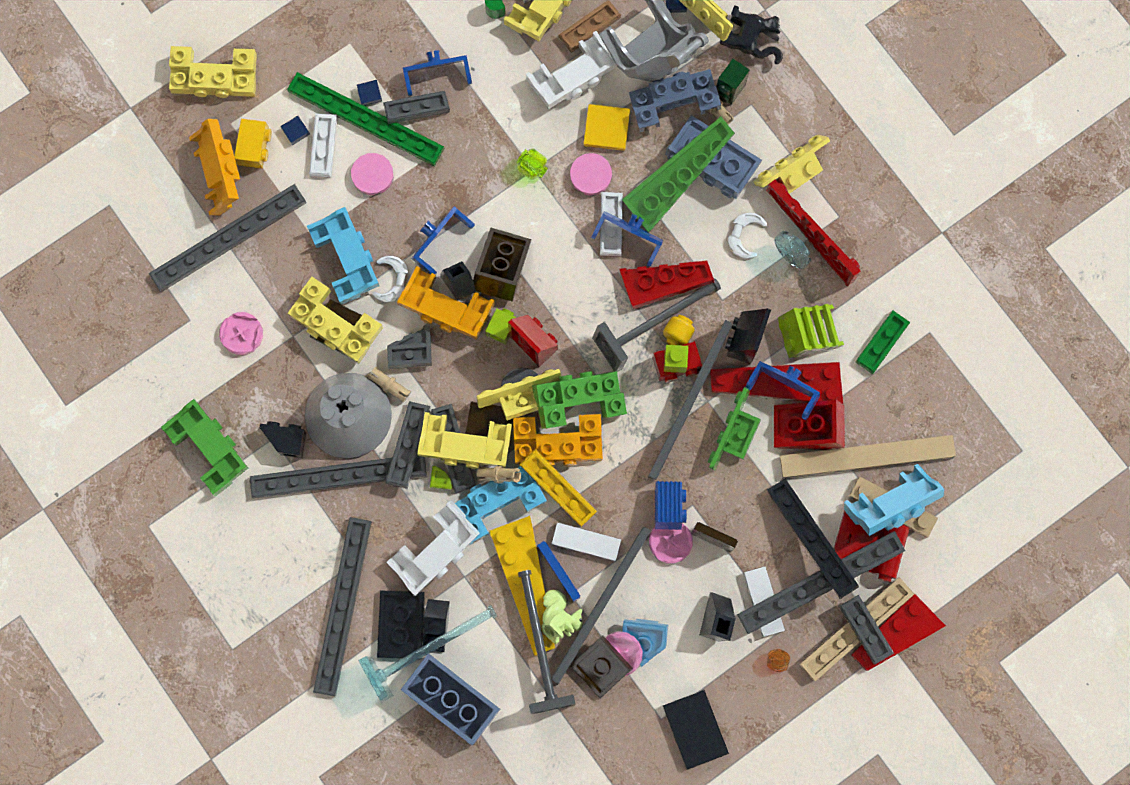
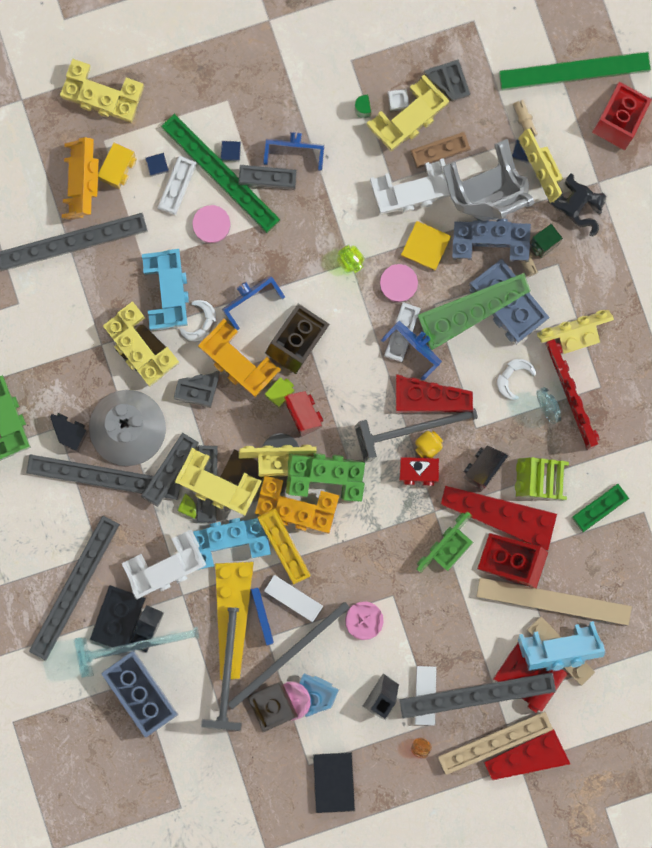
camera: 15 degrees right, 5 degrees up
(241, 333) = (58, 329): bright pink tile -> none
(389, 384) = (170, 413): tan pin -> none
(458, 280) = (255, 343): black slope -> none
(498, 474) = (237, 520): tan pin -> none
(556, 619) = (248, 657): yellowish green animal -> none
(668, 505) = (371, 590): blue brick -> none
(675, 358) = (417, 469): lime brick -> none
(690, 400) = (419, 507): dark grey tile -> none
(714, 537) = (401, 629): dark brown tile -> none
(790, 379) = (507, 515): blue piece -> none
(812, 538) = (482, 656): black plate -> none
(866, 629) = (502, 746): dark grey tile -> none

